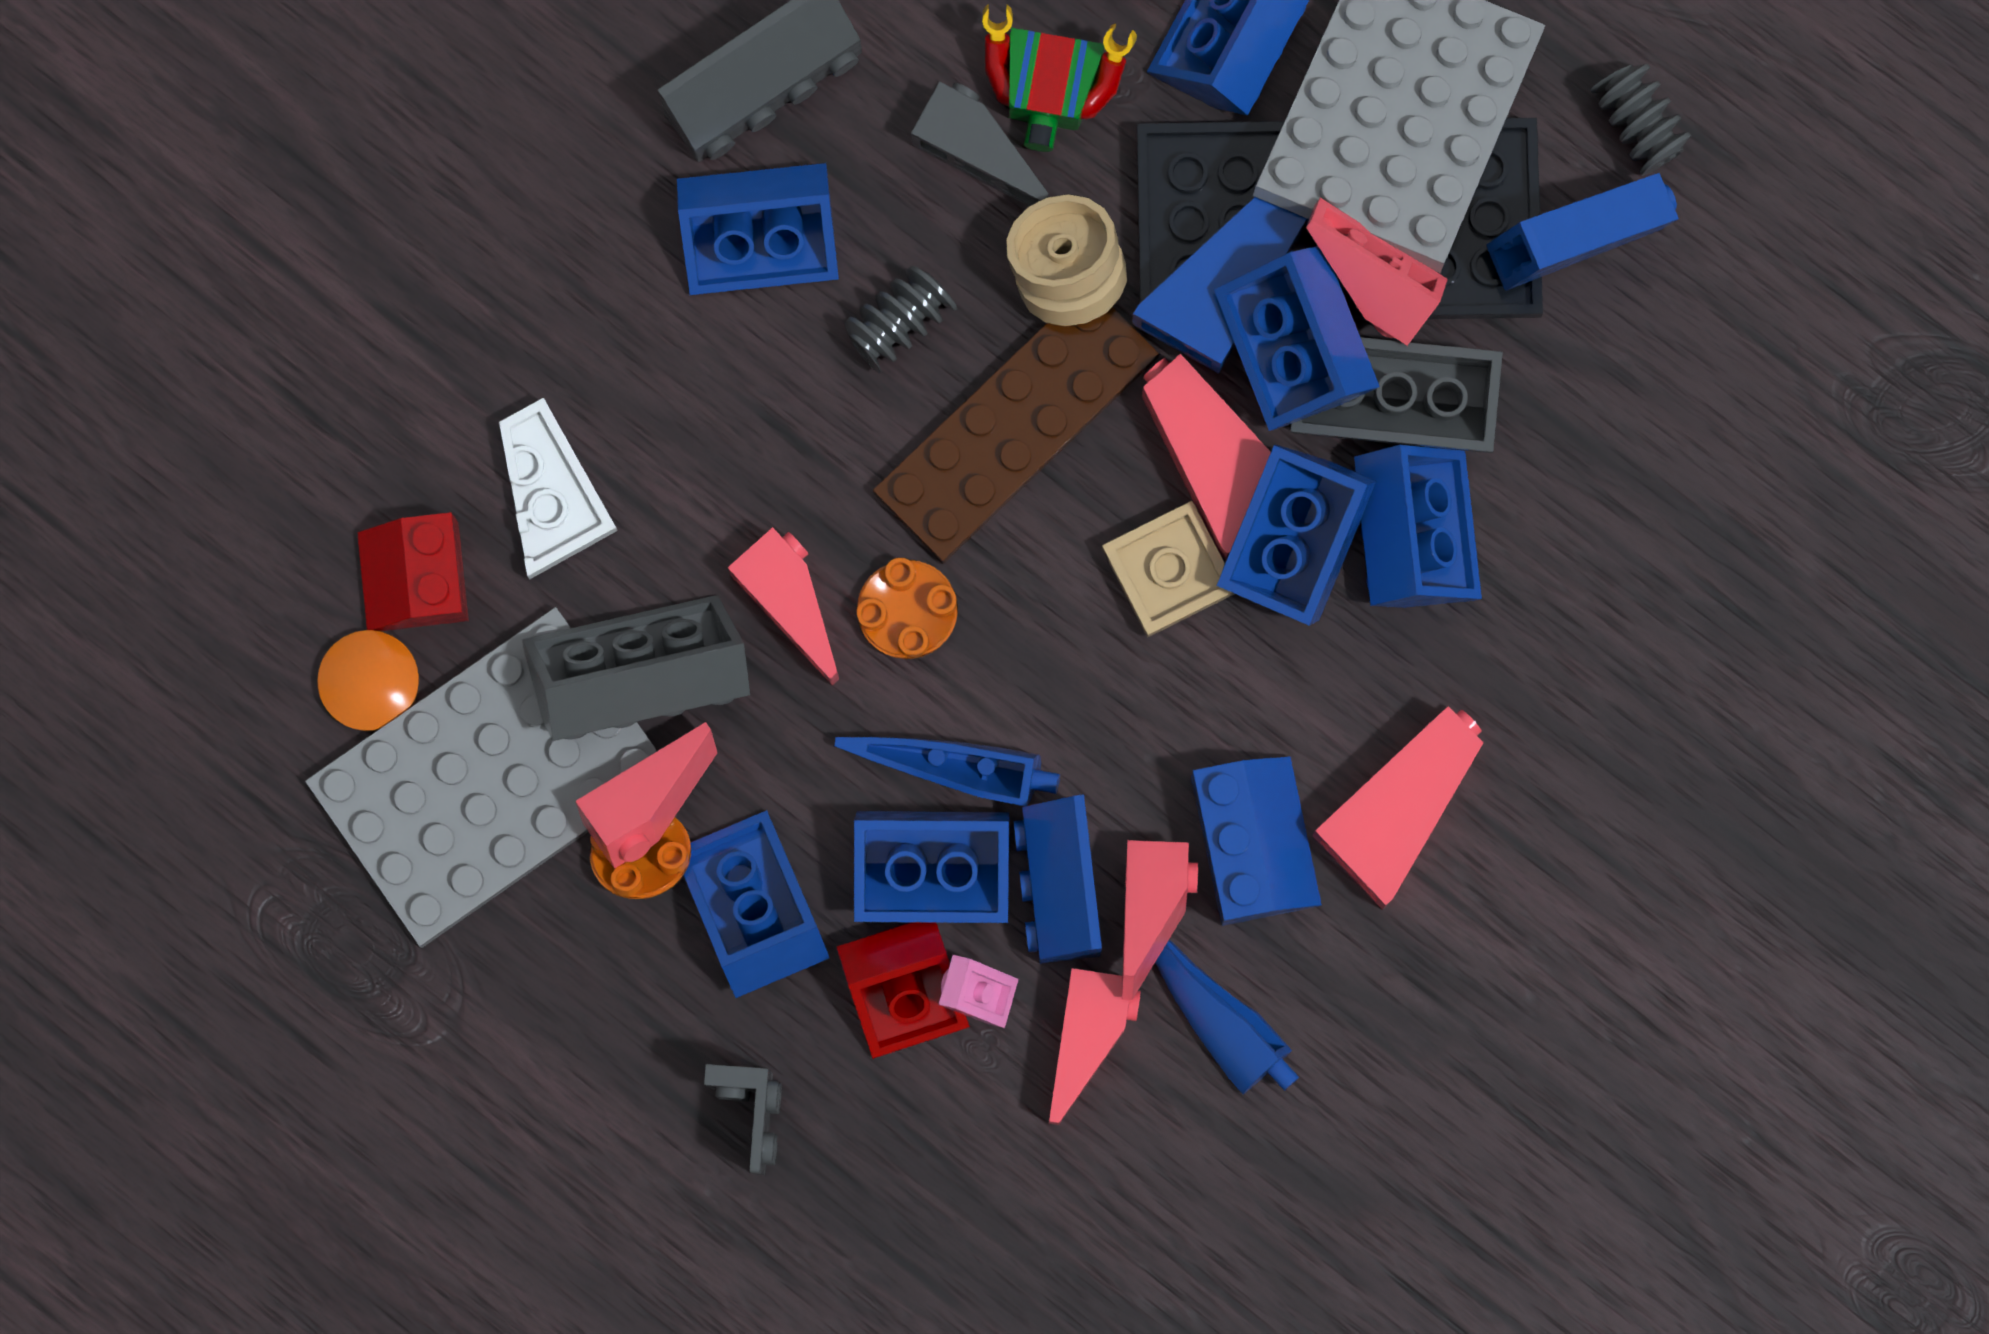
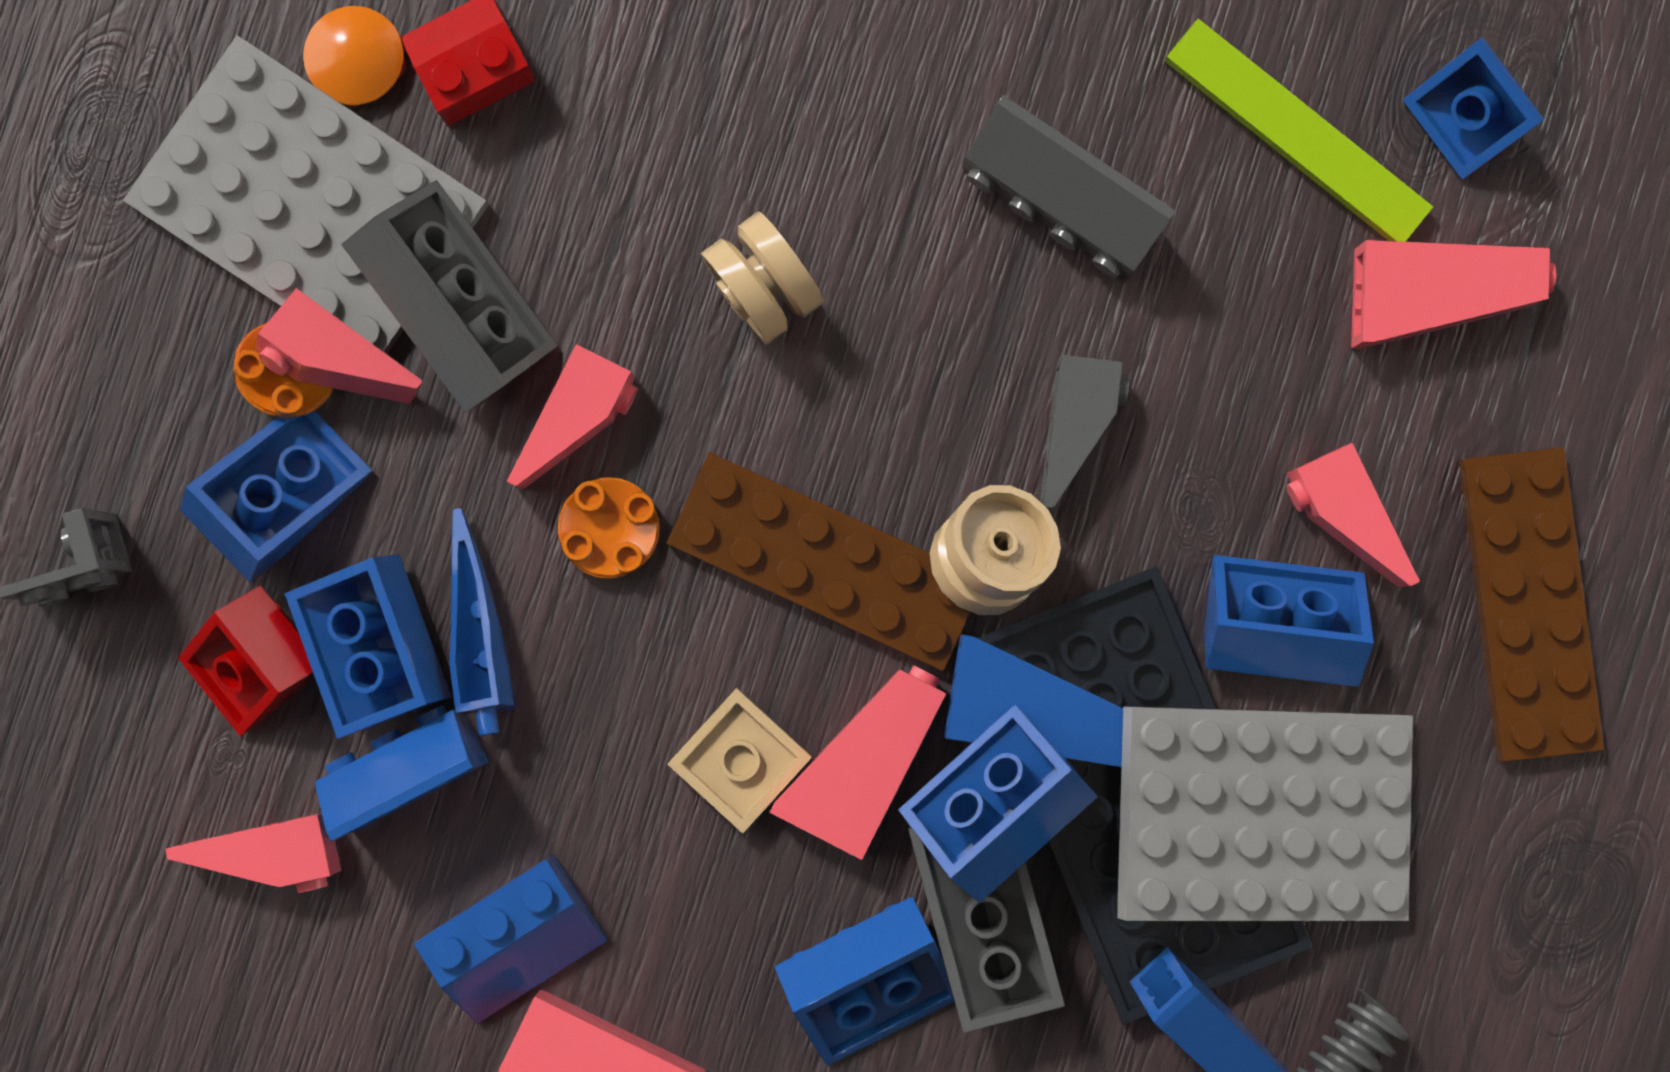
camera: 65 degrees right, 5 degrees up
(550, 490) = (595, 153): white wing -> none
(734, 374) = (768, 274): none -> tan wheel
(757, 229) = (916, 245): blue slope -> none
(897, 316) = (881, 411): dark grey piece -> none
(978, 991) = (262, 734): bright pink plate -> none
(1051, 77) = (1170, 466): torso -> none
(1153, 905) = (414, 868): coral slope -> none
(1227, 1027) = (330, 975): blue piece -> none
(1296, 534) = (811, 871): blue slope -> none
(1382, 281) = (1086, 866): coral slope -> none

